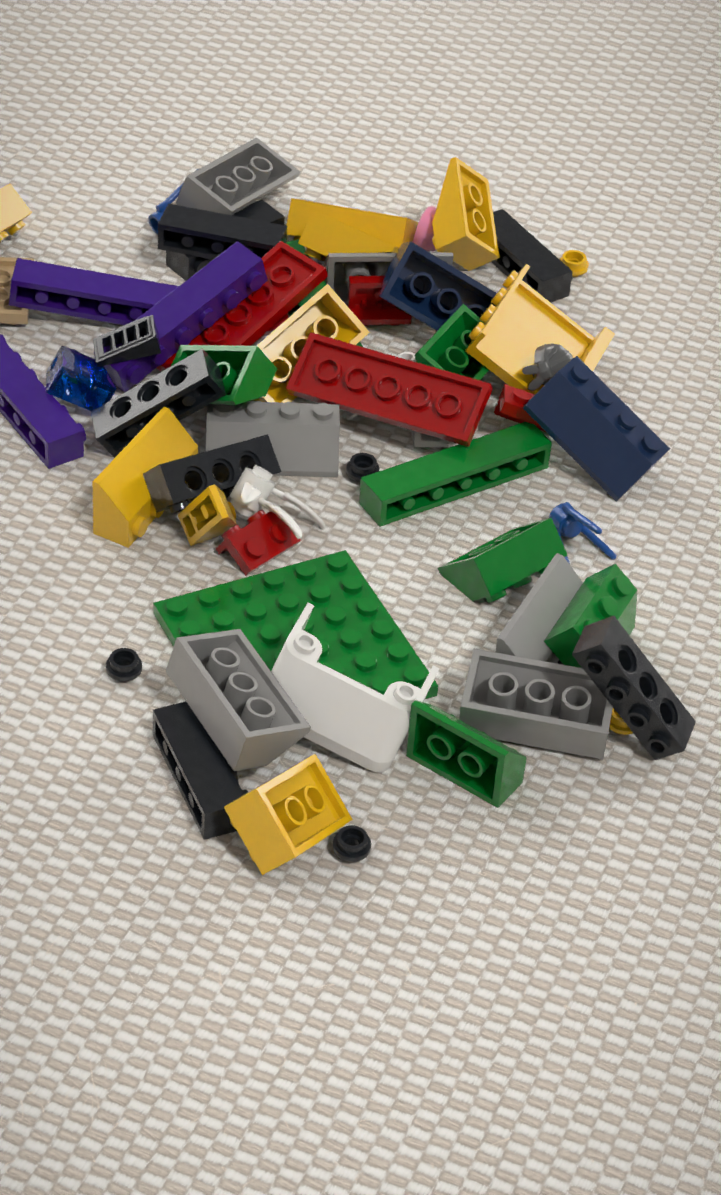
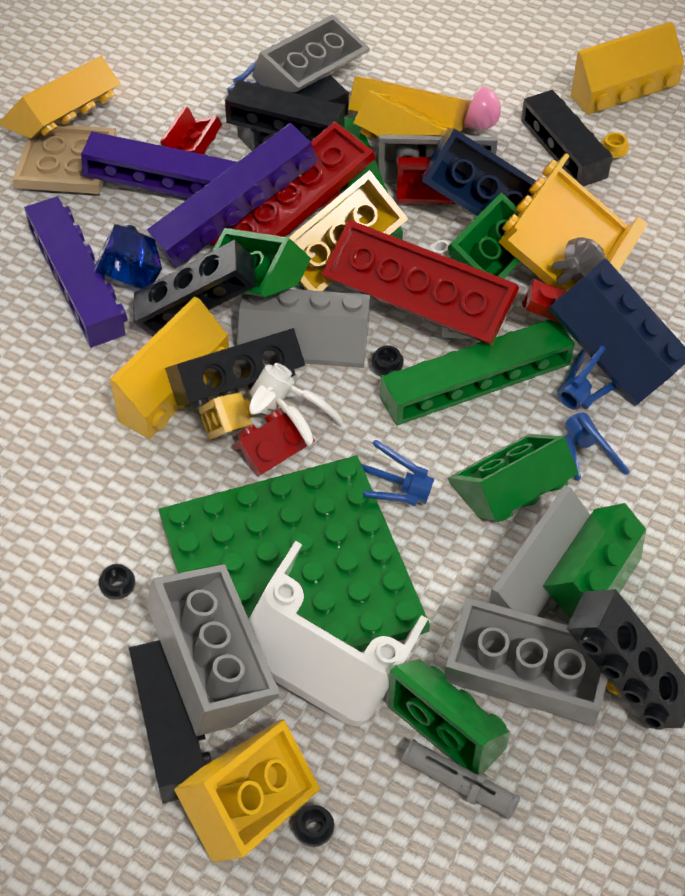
camera: 10 degrees right, 10 degrees up
(119, 261) = (191, 134): none -> red bracket
(144, 342) = (192, 224): black slope -> none
(407, 573) = (415, 486): none -> blue plant
(465, 217) = (514, 99): yellow slope -> none
(497, 807) = (472, 785): none -> light grey pin
(558, 485) = (577, 390): none -> blue plant
(579, 187) = (627, 68): none -> yellow slope

